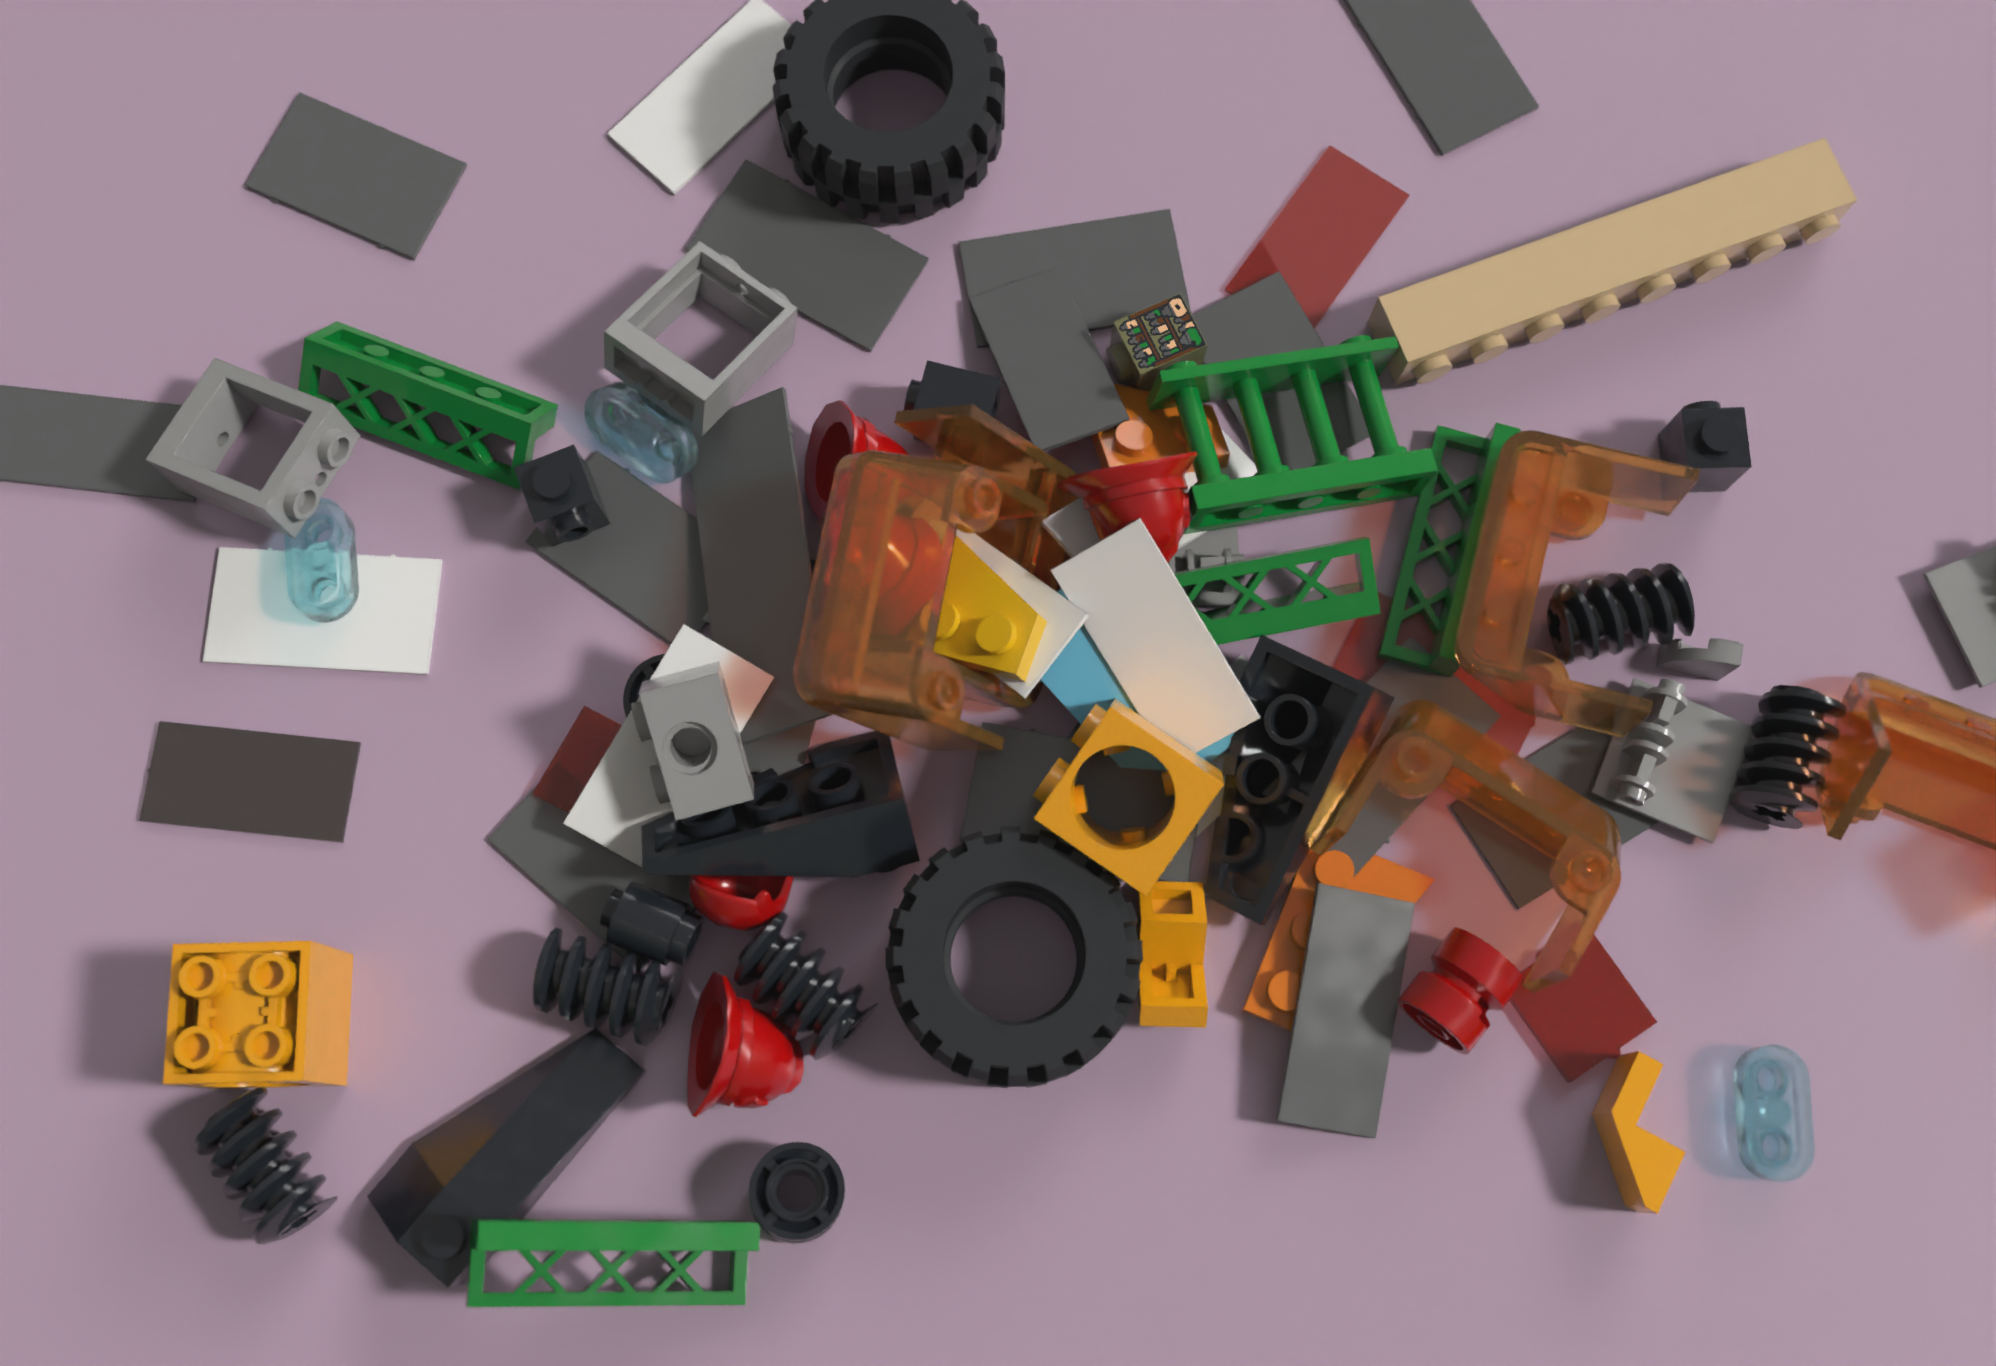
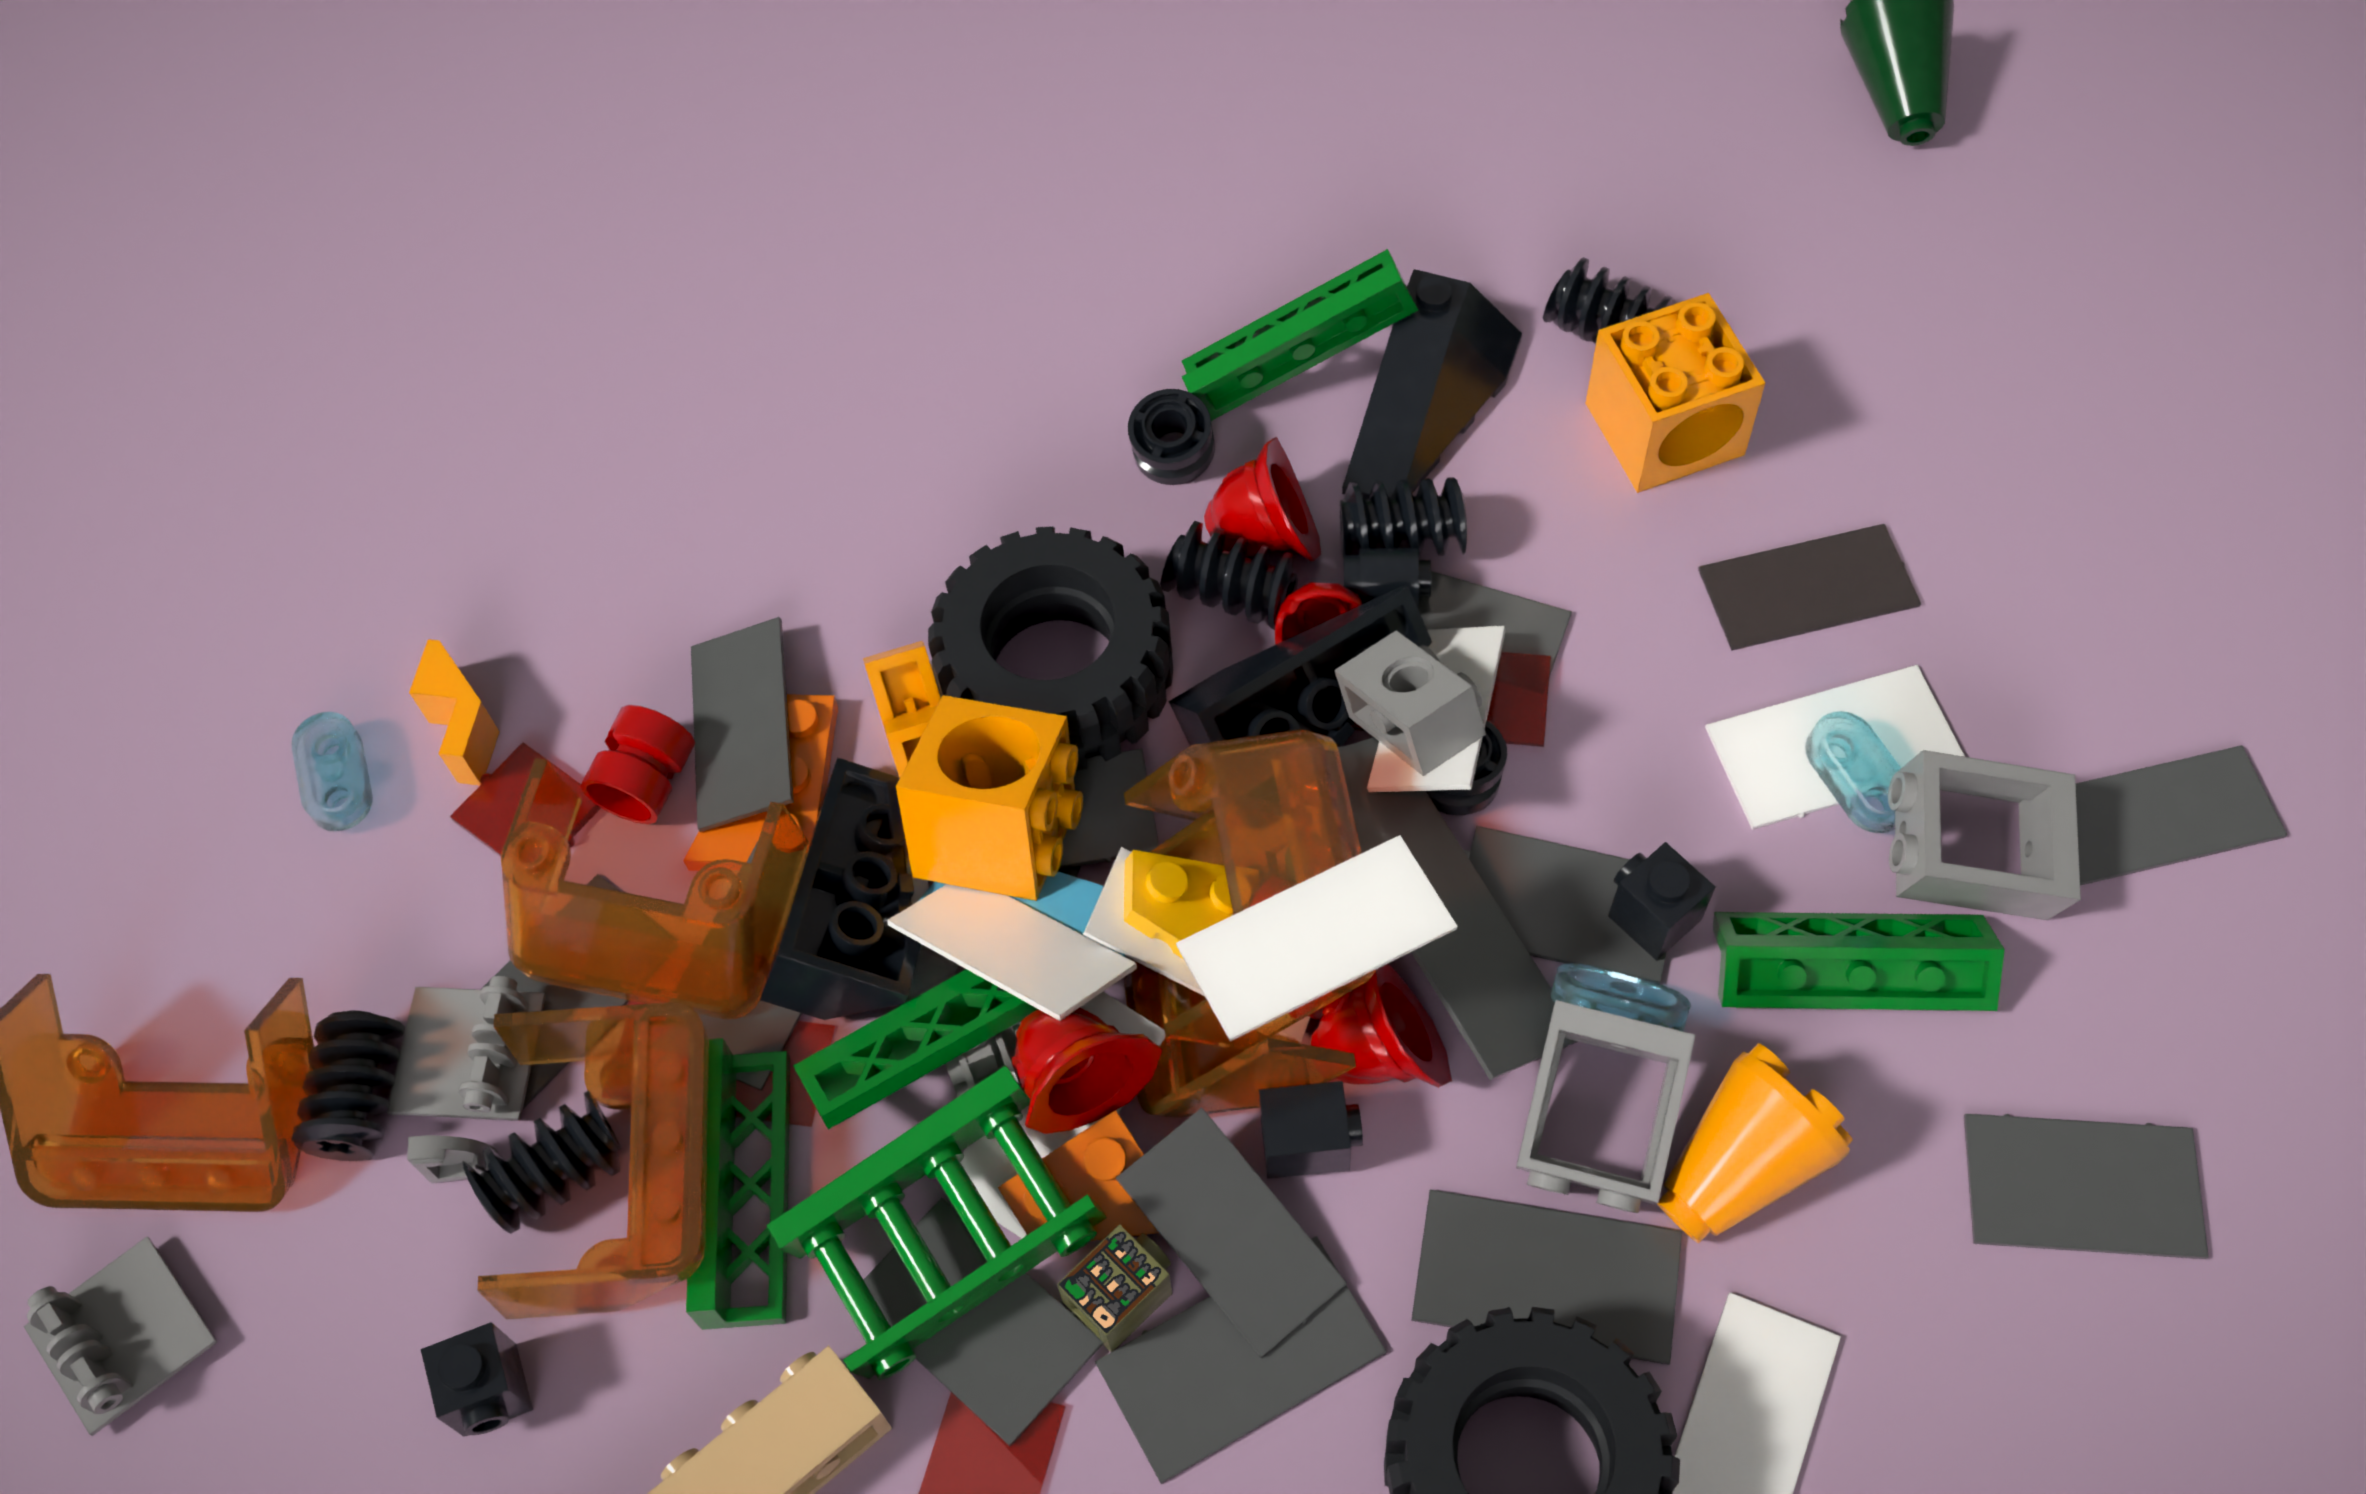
camera: 165 degrees right, 15 degrees down
(596, 264) = (1751, 1147): none -> light orange cone
(891, 478) = (1315, 937): none -> white piece

